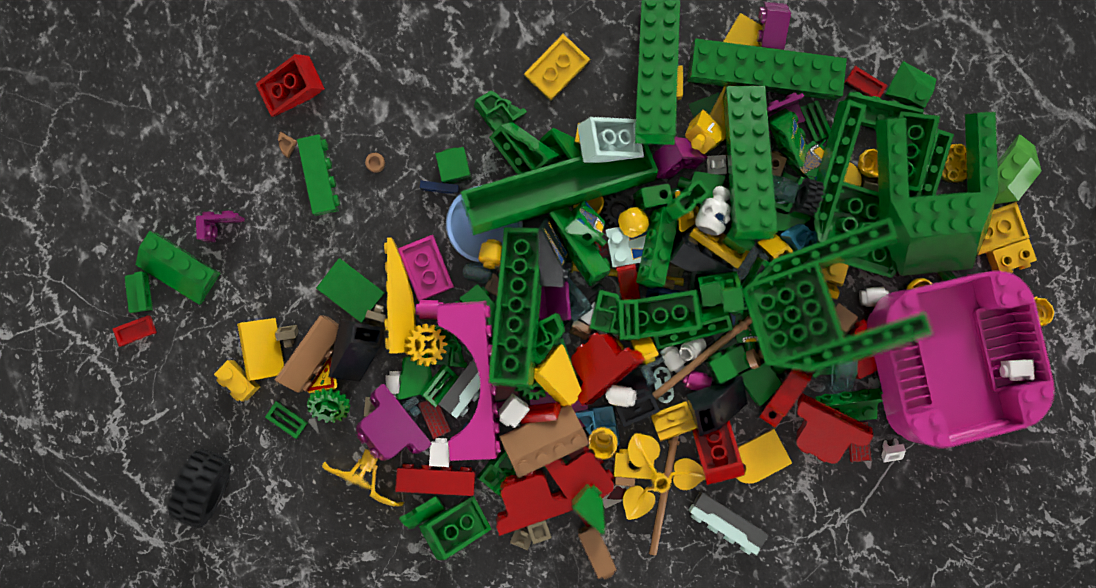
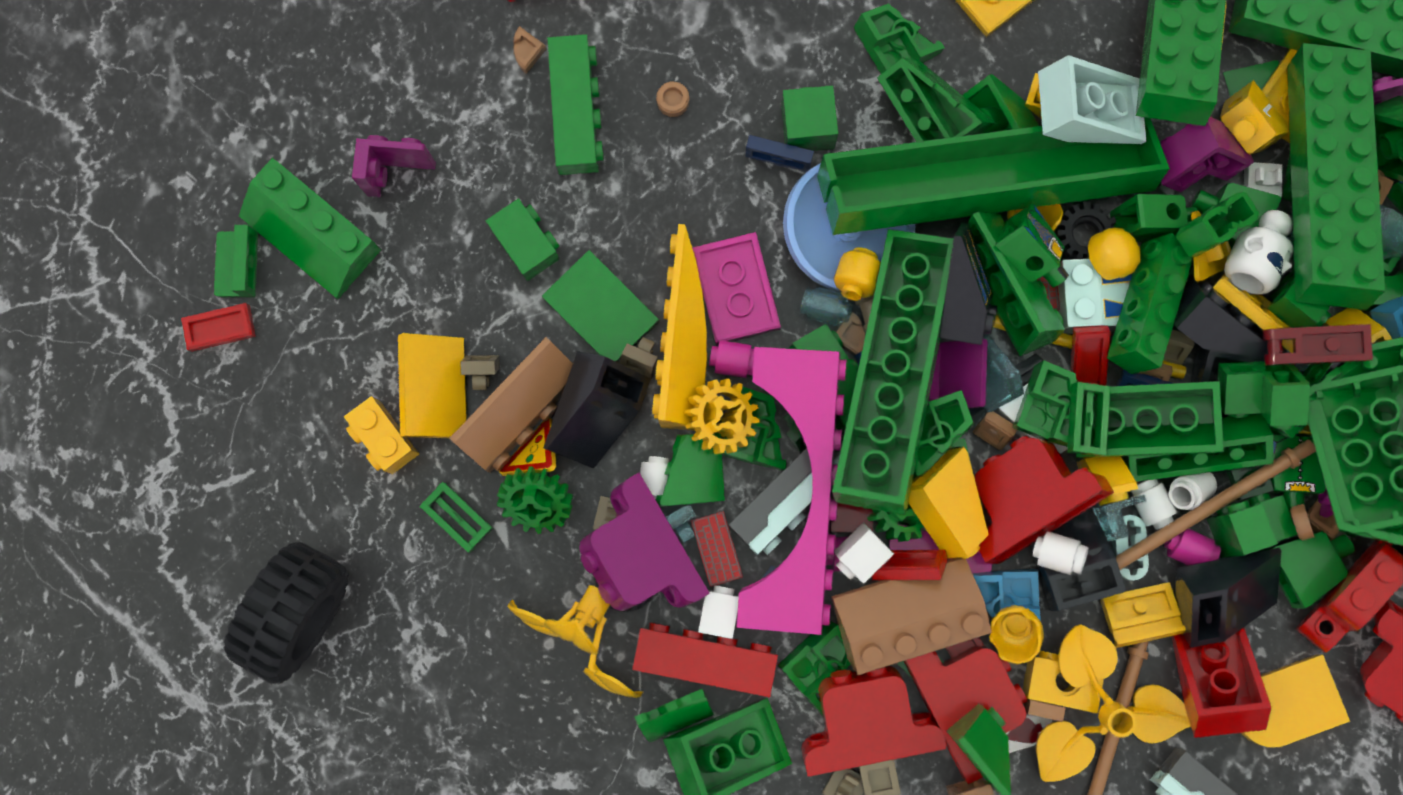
camera: 10 degrees right, 5 degrees down
(301, 257) = (523, 239): none -> green piece
(434, 381) = (725, 484): green tile -> none
(747, 262) = (1319, 344): none -> dark red plate

